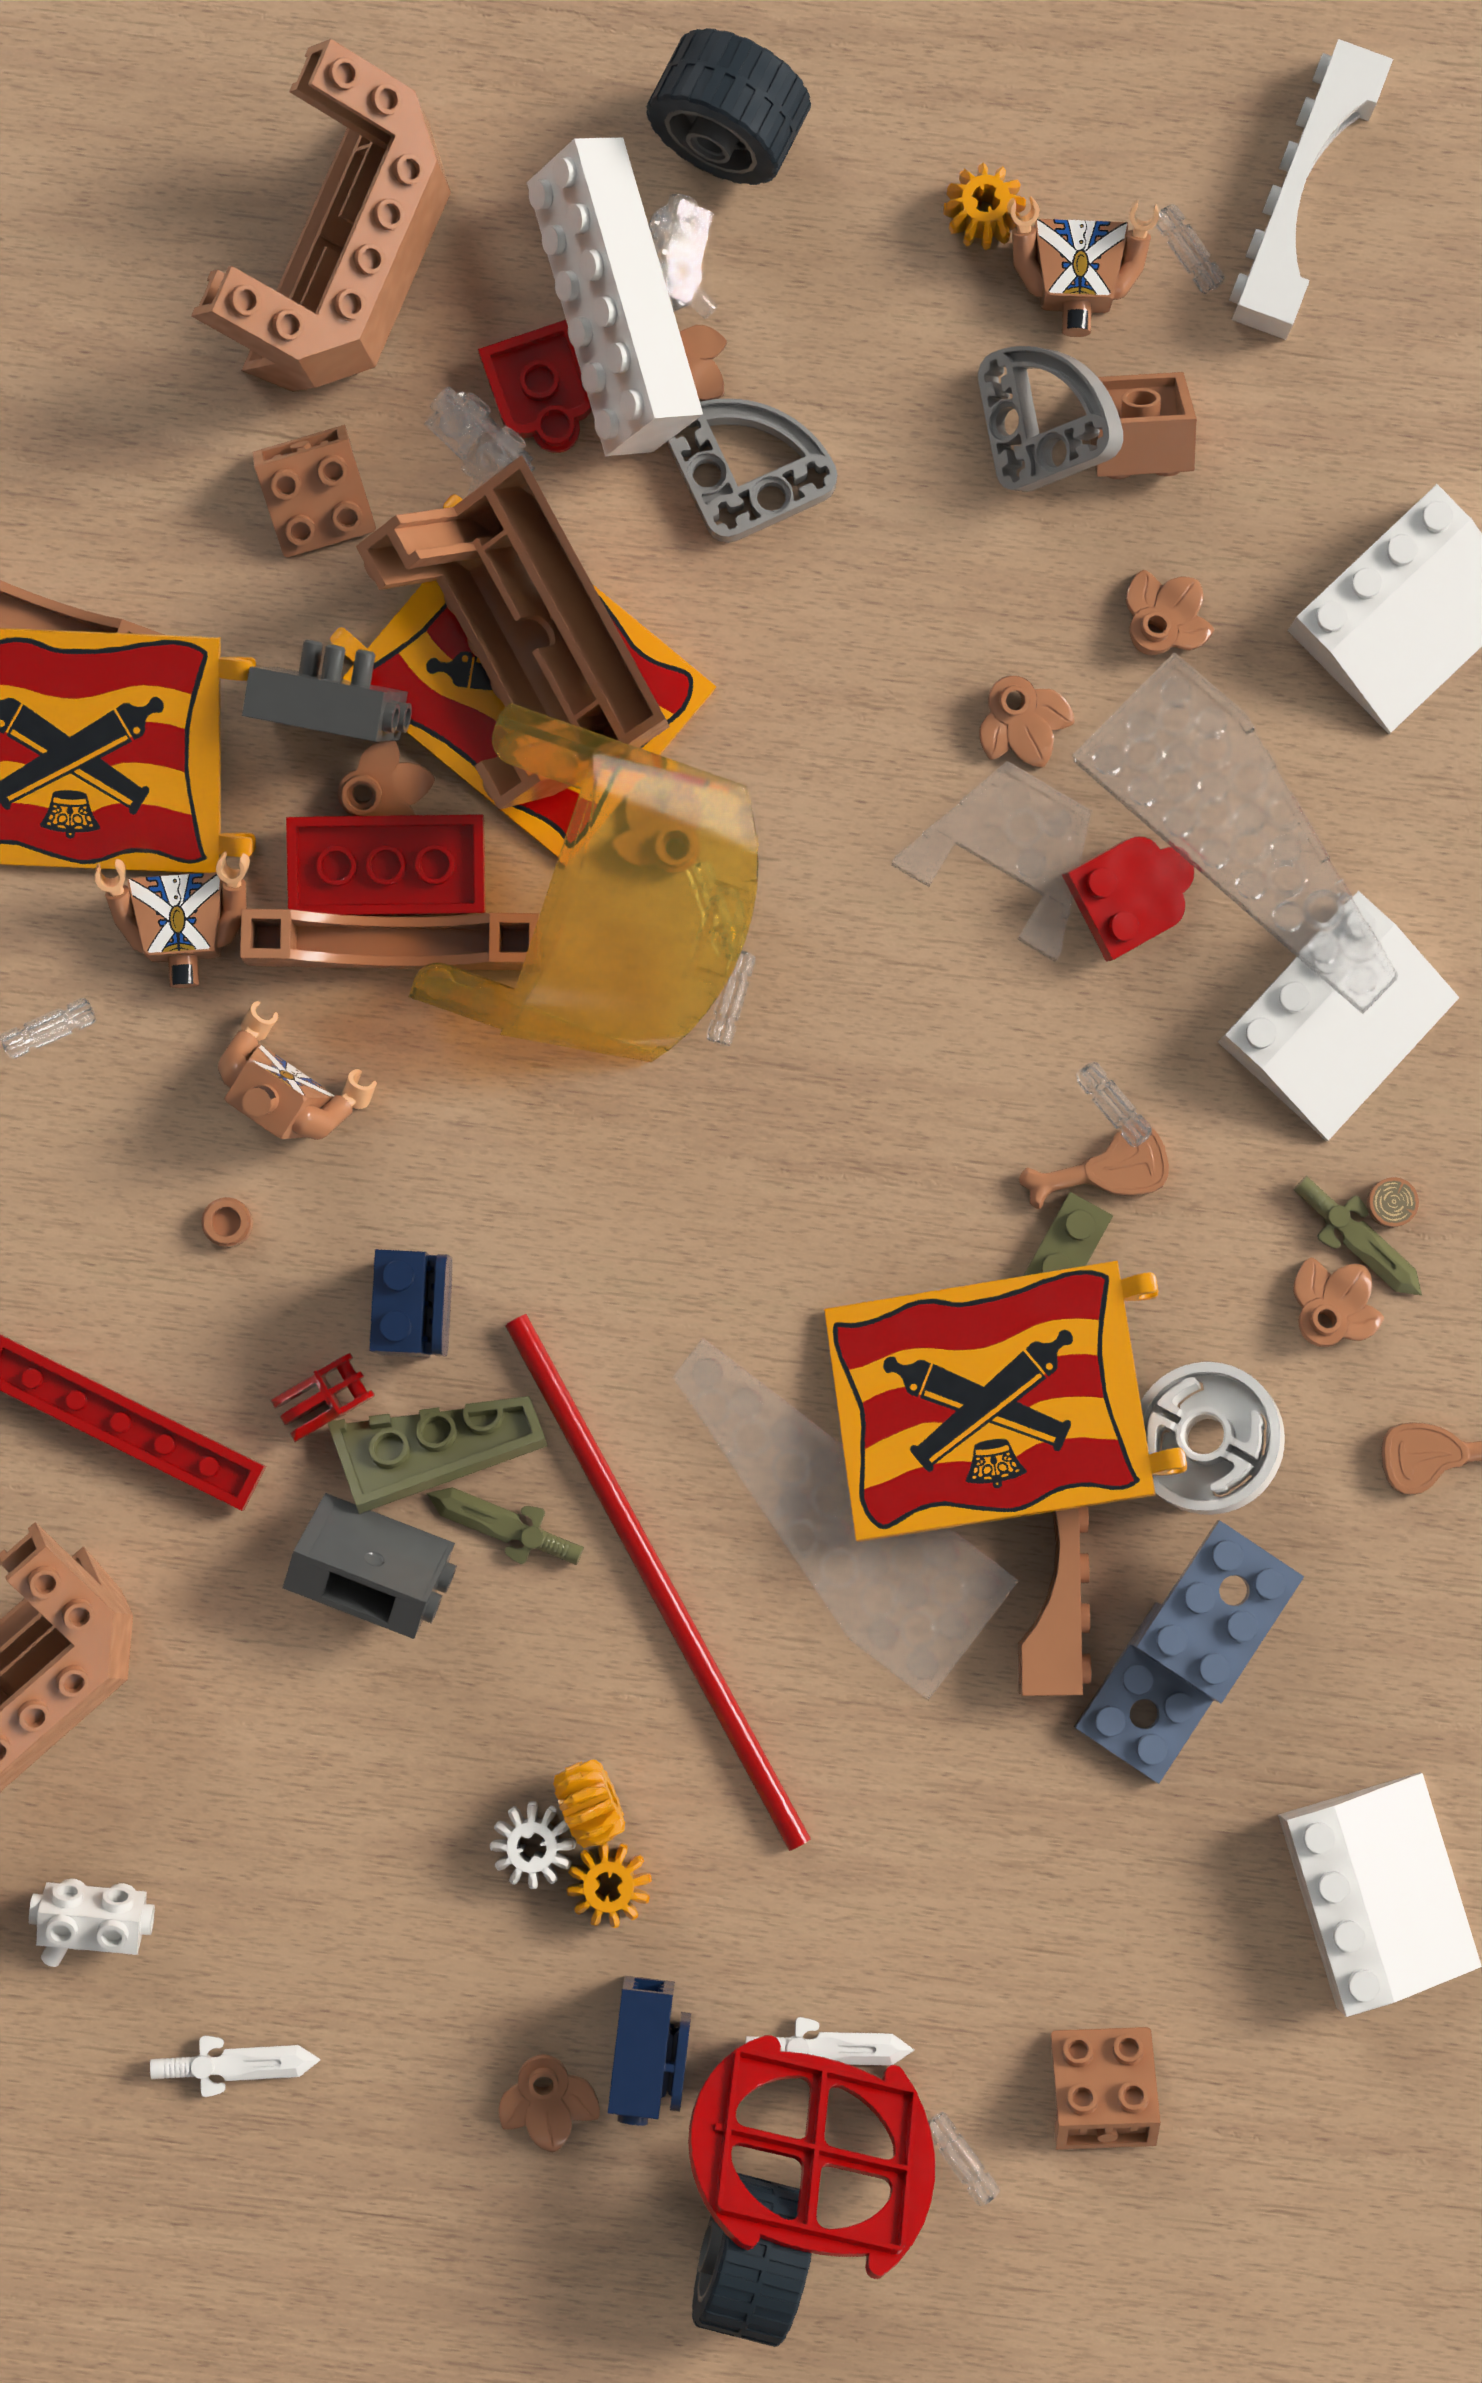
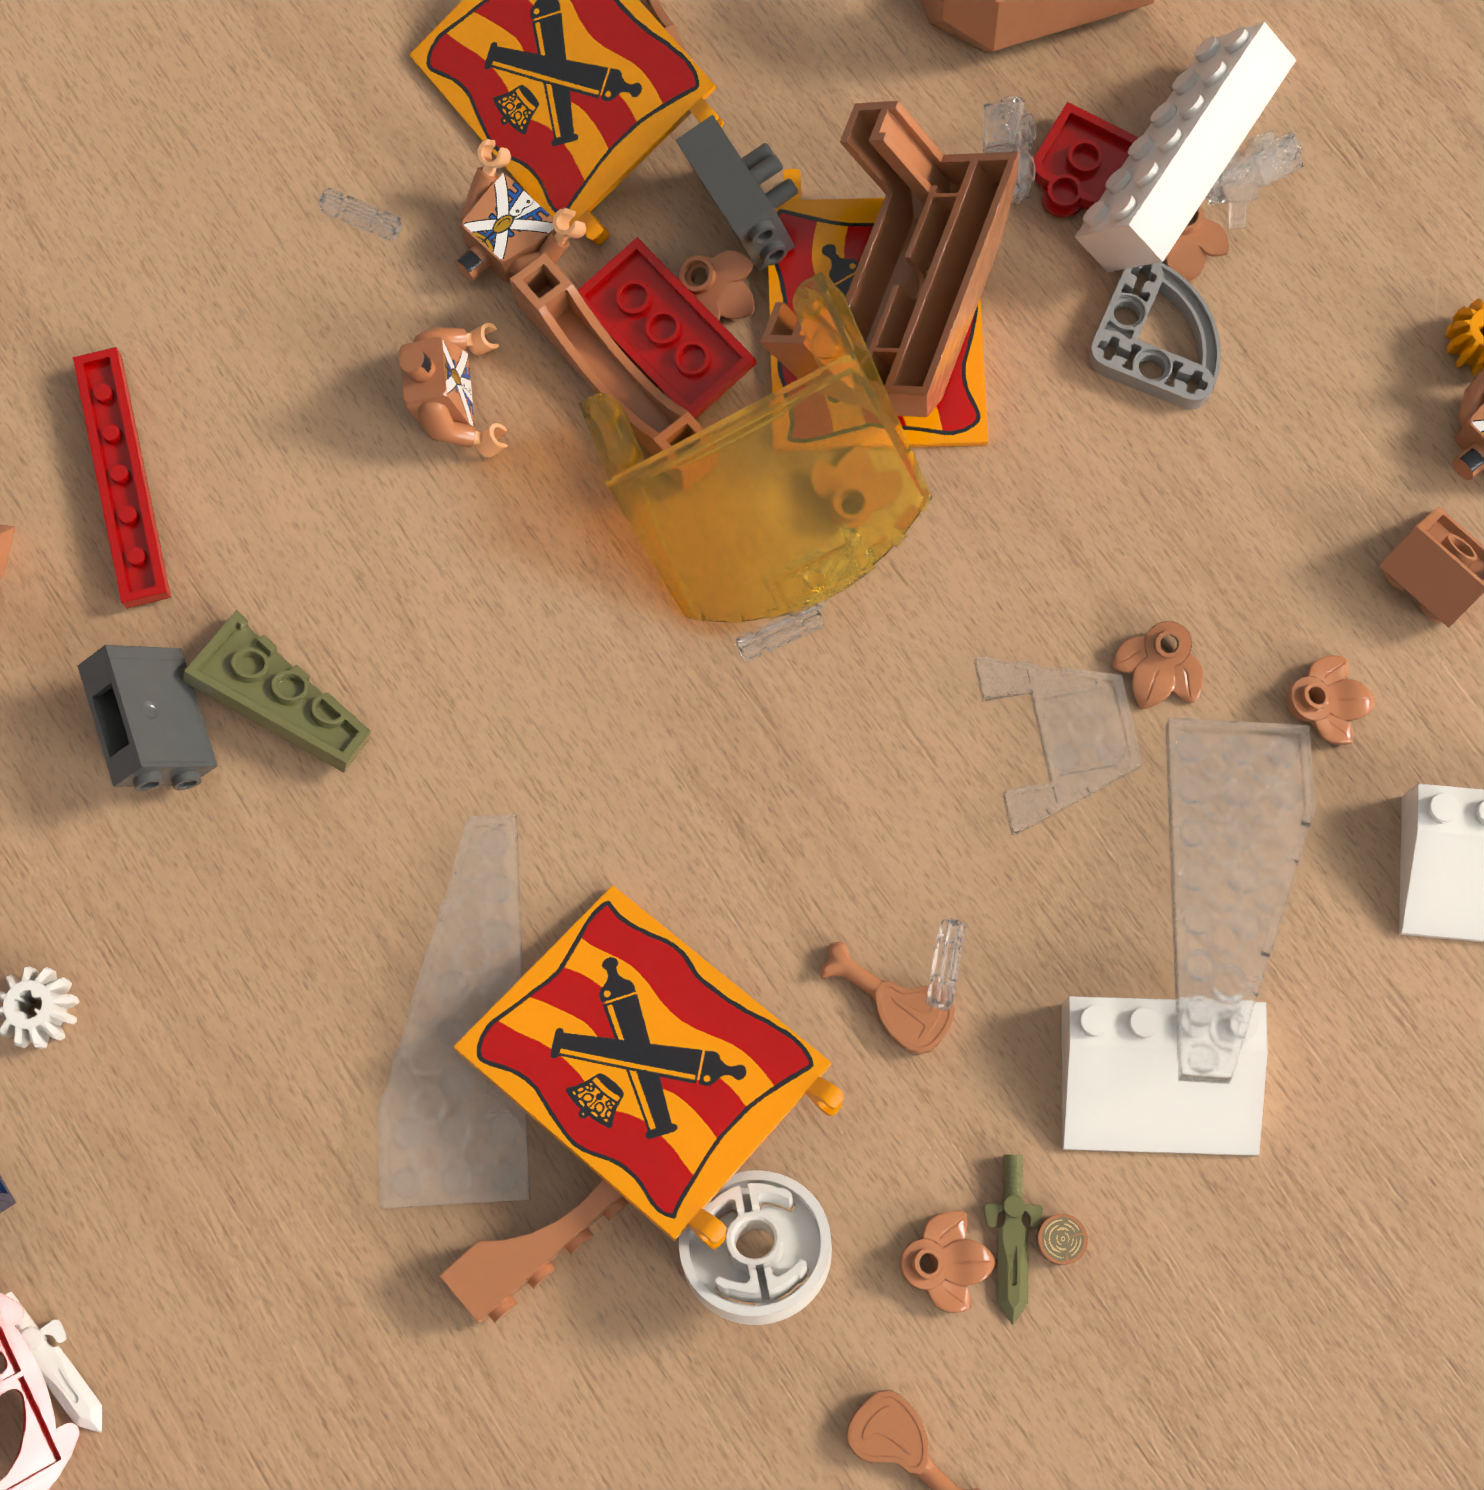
camera: 50 degrees right, 10 degrees down
(227, 1222) = (324, 433): nougat tile -> none
(314, 491) = (871, 72): nougat bracket -> none
(326, 1395) = (248, 589): red arm -> none
(411, 1303) = (360, 585): dark blue brick -> none
(504, 1525) = (263, 794): olive sword -> none
(589, 1803) = (95, 1020): light orange gear -> none
(592, 1881) = (53, 1106): light orange gear -> none
(658, 1582) = (305, 944): red piece -> none
(728, 106) = (1384, 110): black wheel -> none
(1036, 447) = (1343, 506): light grey beam -> none
(1070, 1237) = (822, 1018): olive plate -> none
(1130, 893) = (1109, 843): red plate -> none
(1189, 1651) = (581, 1378): sand blue bracket -> none

